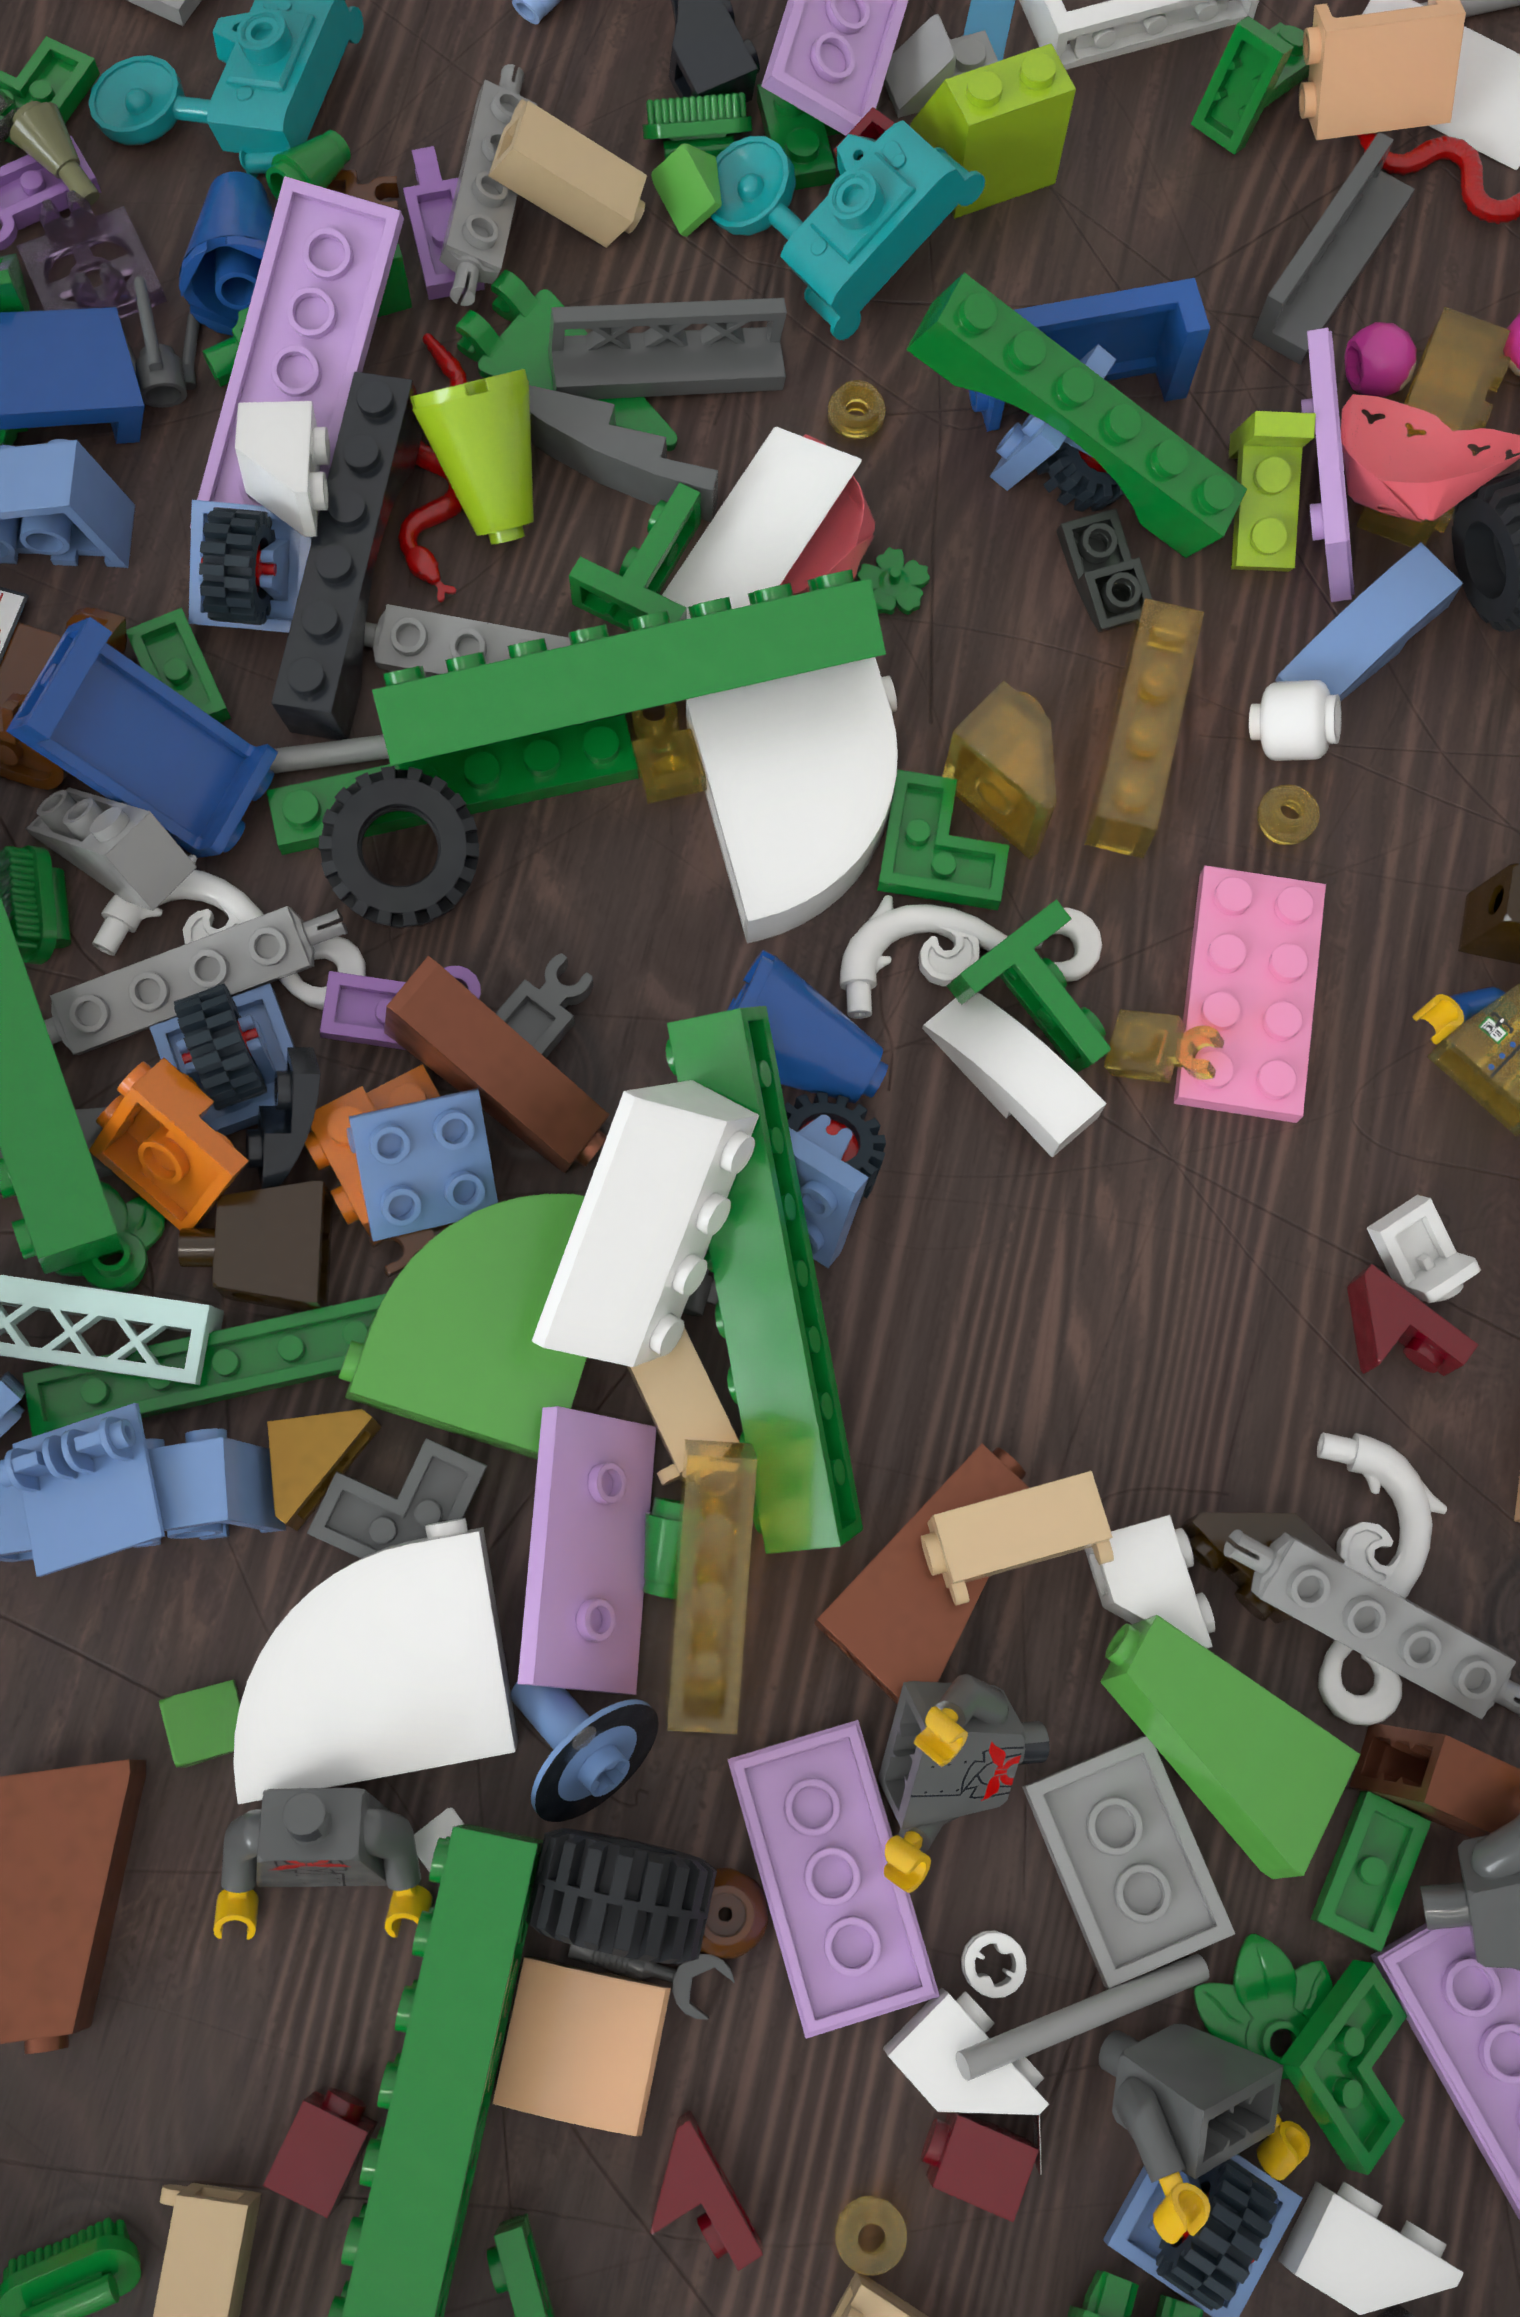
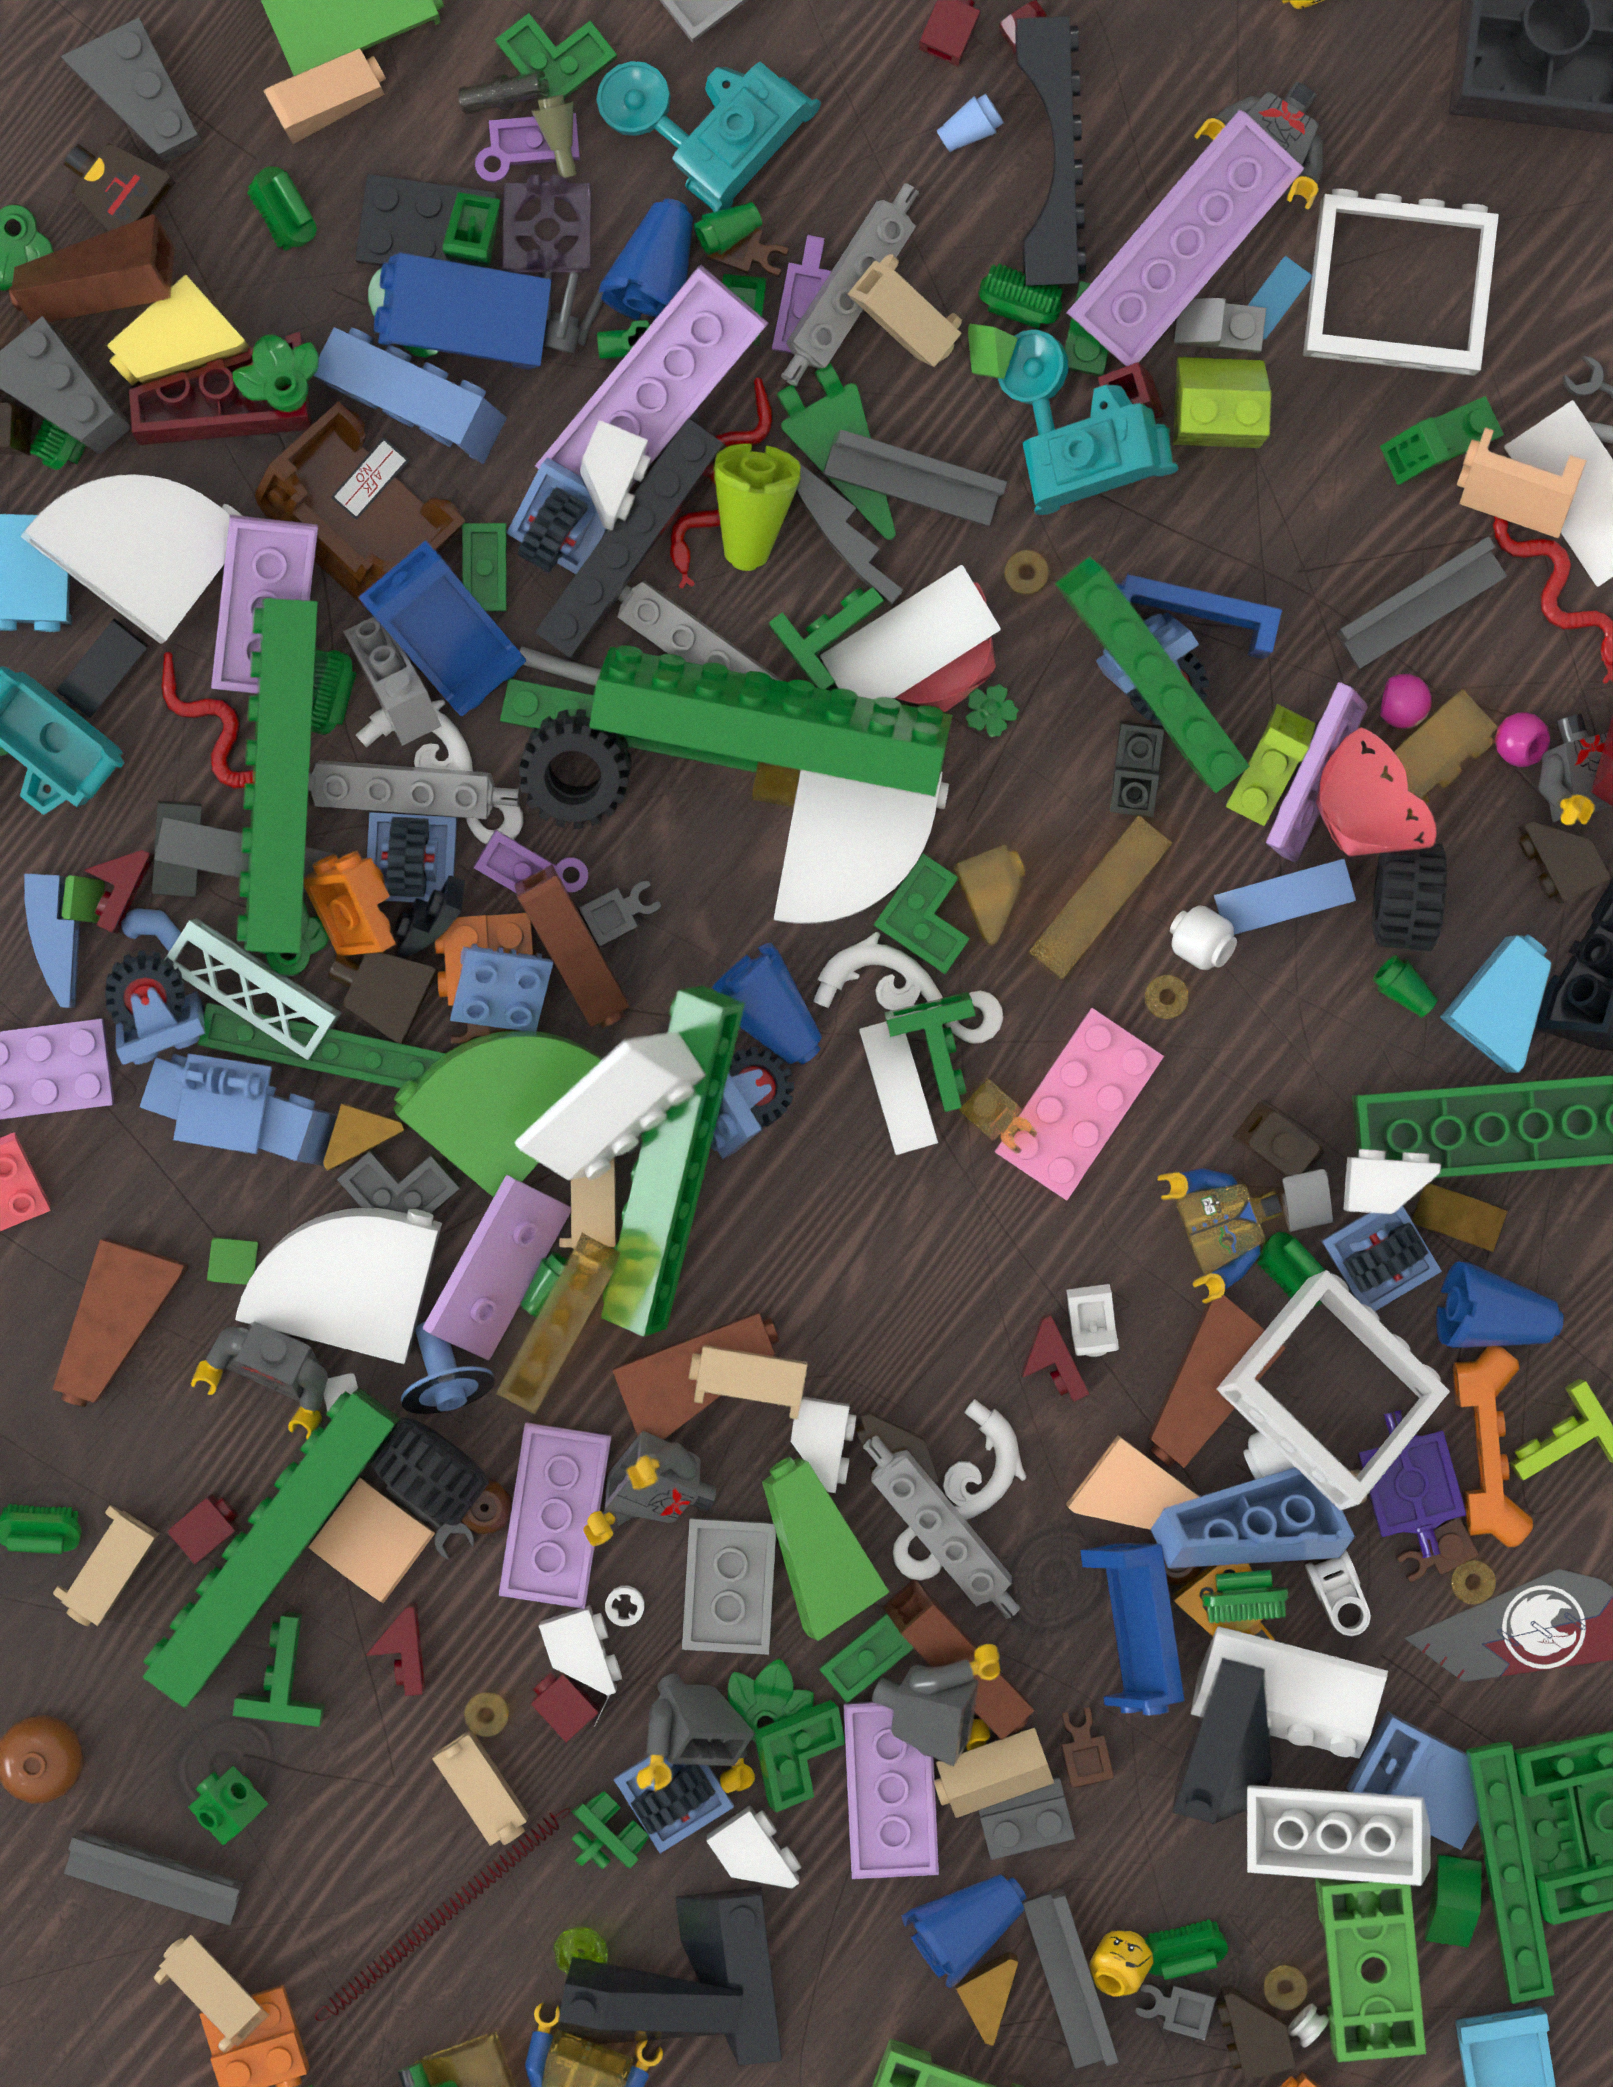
camera: 30 degrees right, 15 degrees up
(1081, 2017) = (659, 1656): light grey bar -> none

